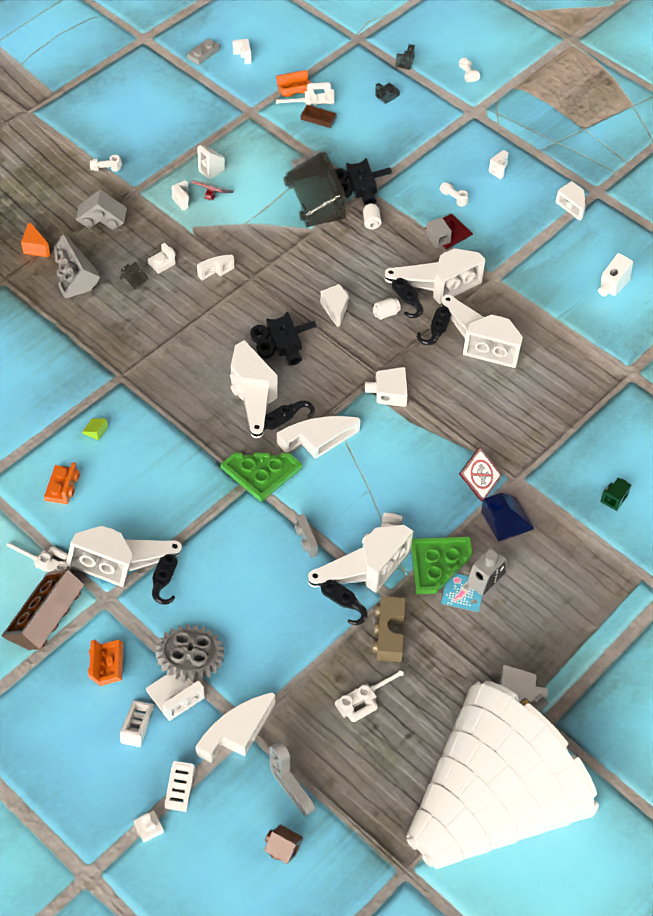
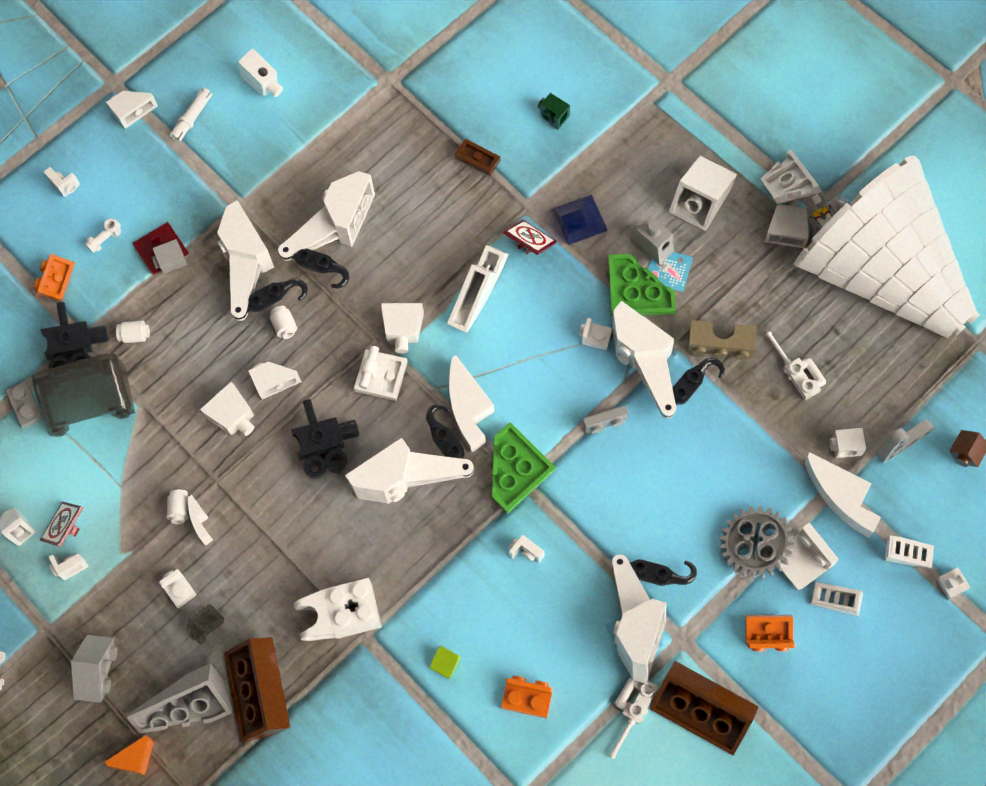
camera: 80 degrees left, 15 degrees up
(80, 309) = (256, 689): none -> reddish brown slope
(139, 358) = (333, 611): none -> white brick
(188, 479) = (530, 550): none -> white bracket
(227, 250) = (177, 506): none -> white brick
(289, 733) = (848, 443): none -> white brick
(307, 279) = (229, 411): none -> white torso
(343, 373) = (380, 374): none -> white plate
(414, 167) = (54, 277): none -> orange bracket
(429, 437) = (477, 288): none -> white slope
(545, 613) = (702, 192): none -> white slope
(559, 436) = (477, 157): none -> reddish brown plate
(564, 686) = (789, 180): none -> white wing
(566, 236) = (186, 121): none -> white pin

